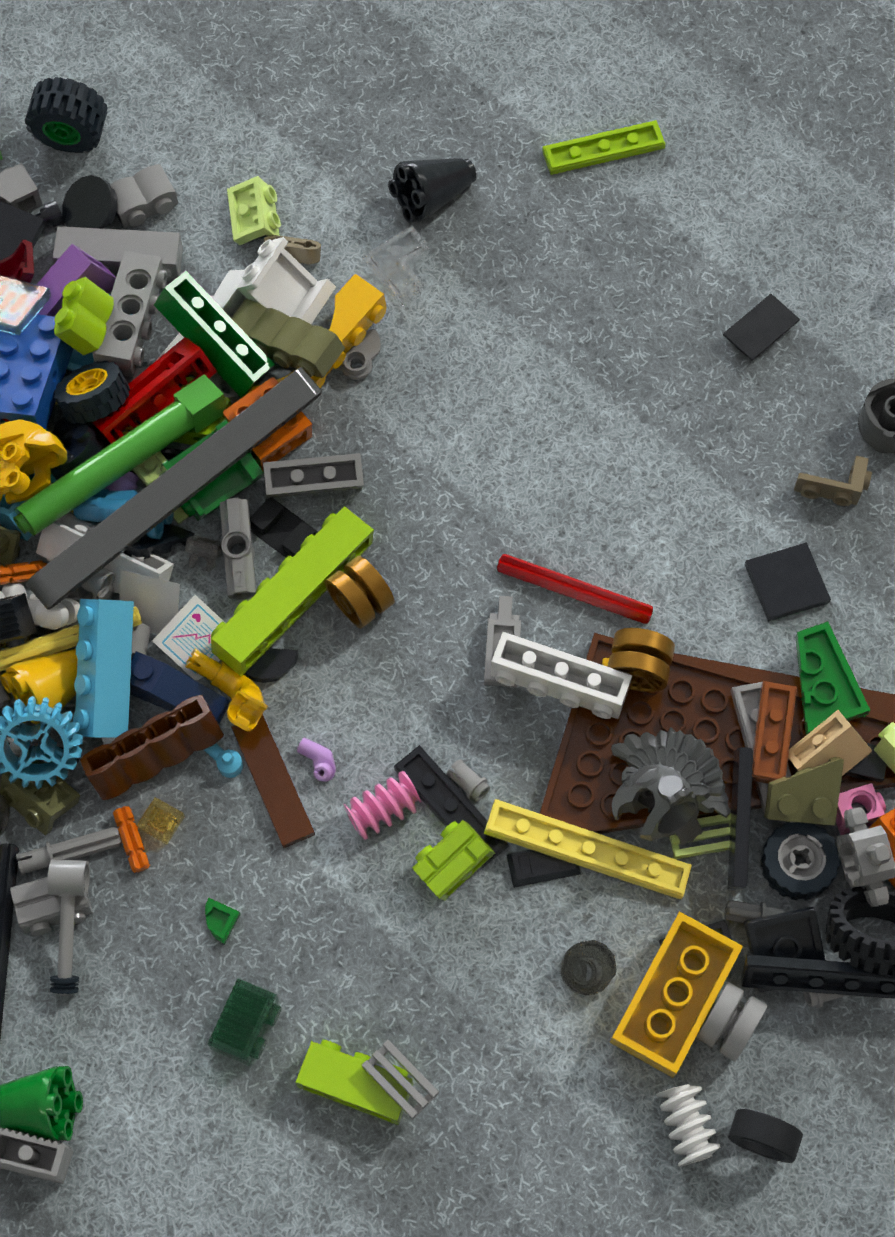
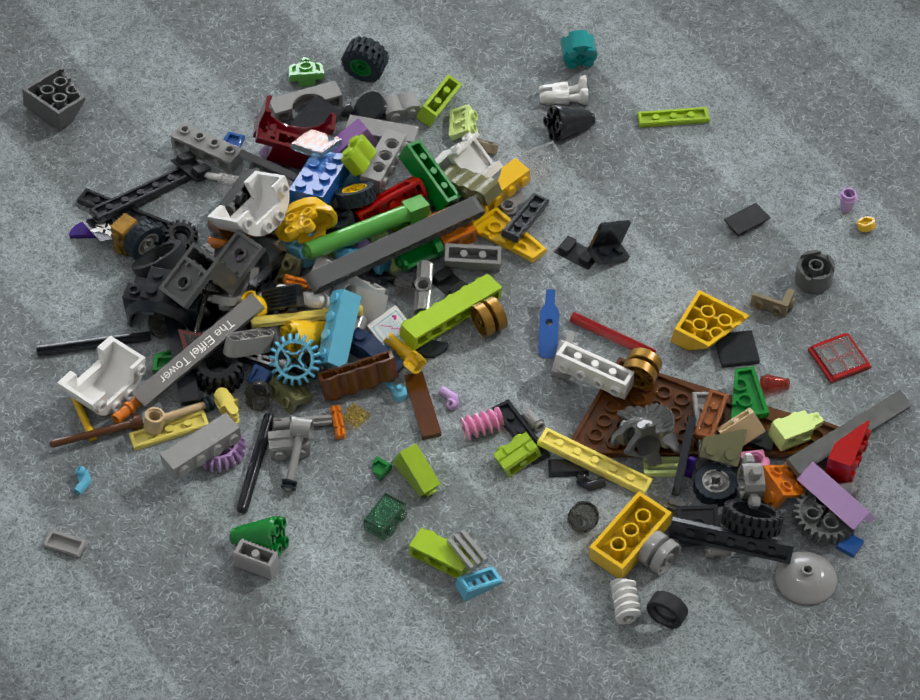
camera: 10 degrees right, 15 degrees down
(206, 176) = (439, 100): none -> lime brick
(285, 922) = (416, 470): none -> lime slope
(365, 418) = (491, 226): none -> yellow wing
(389, 383) = (525, 218): none -> black tile
(404, 1145) = (468, 590): none -> medium azure slope
(407, 132) = (563, 94): none -> white piece
(426, 42) = (578, 49): none -> teal brick
(465, 605) = (548, 333): none -> blue piece
(488, 434) = (575, 253): none -> black piece
(538, 419) = (606, 243): none -> black bracket
(584, 893) = (584, 482): none -> black arm
(731, 545) = (706, 322): none -> yellow wedge
(755, 830) = (690, 468): none -> dark purple piece
(861, 641) = (772, 383): none -> clear red cone

